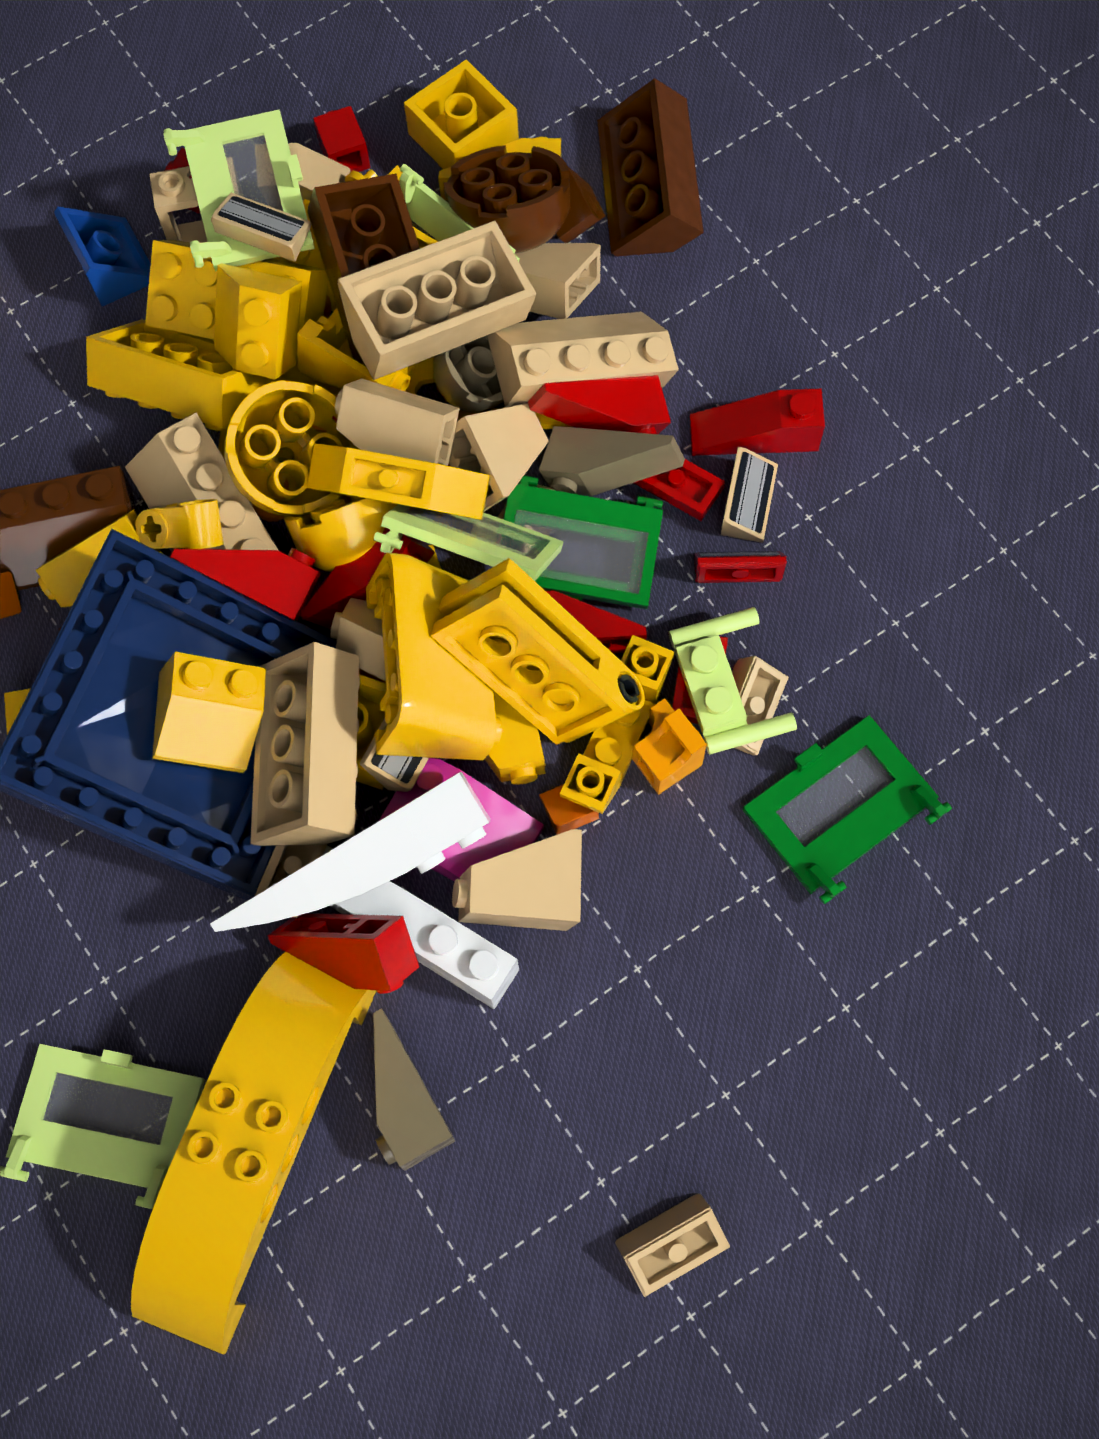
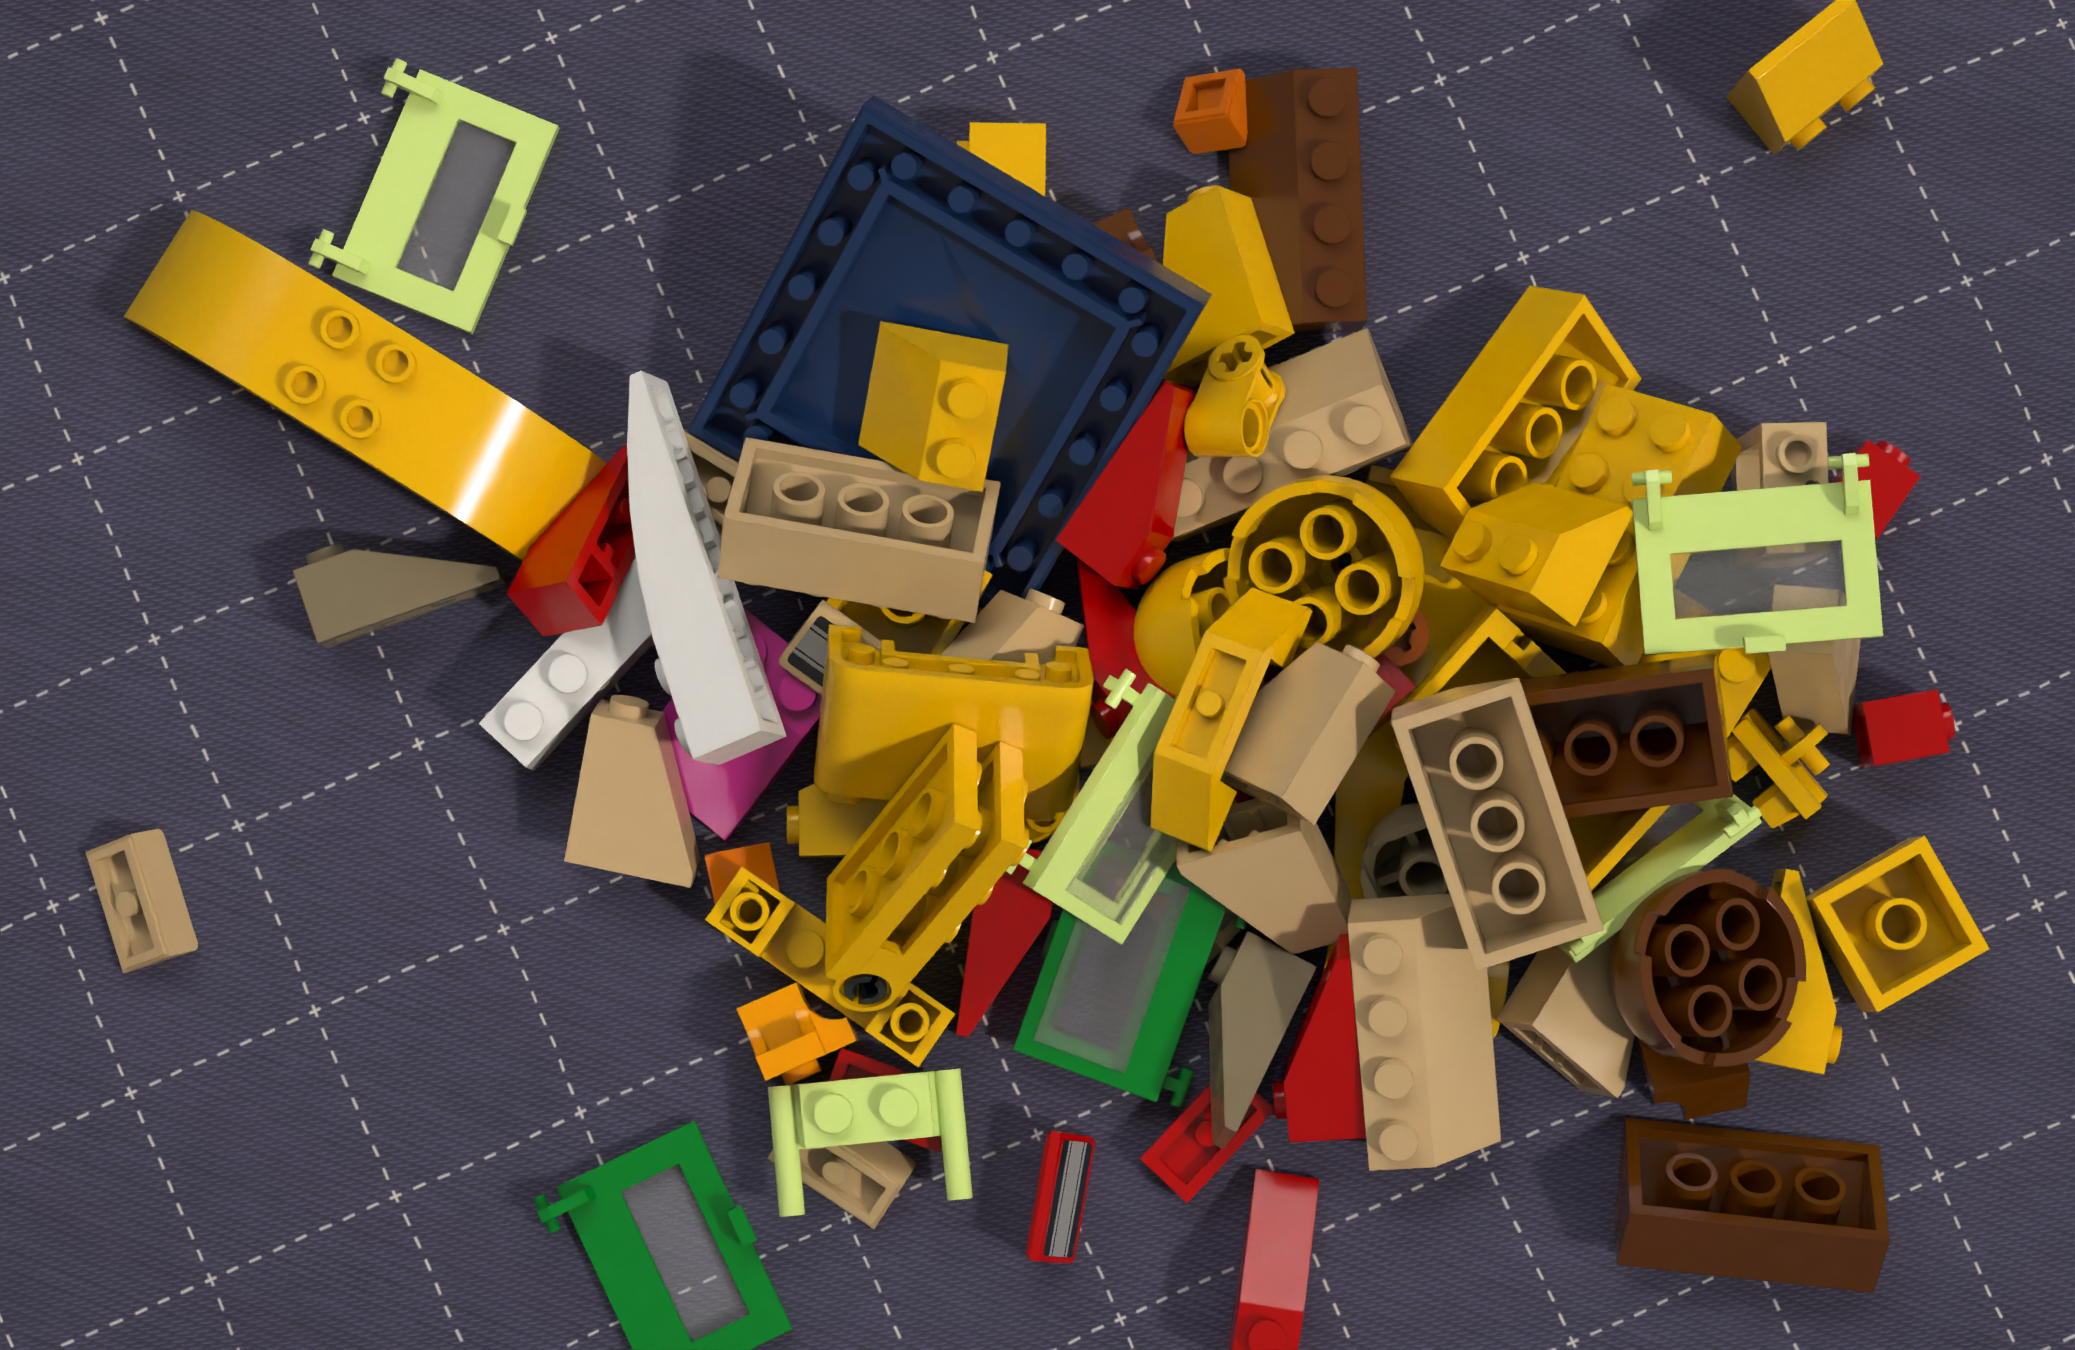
camera: 90 degrees right, 15 degrees up
(106, 252) = (1764, 338): blue slope -> none
(261, 226) = (1679, 581): slope -> none
(749, 496) = (1163, 1237): slope -> none

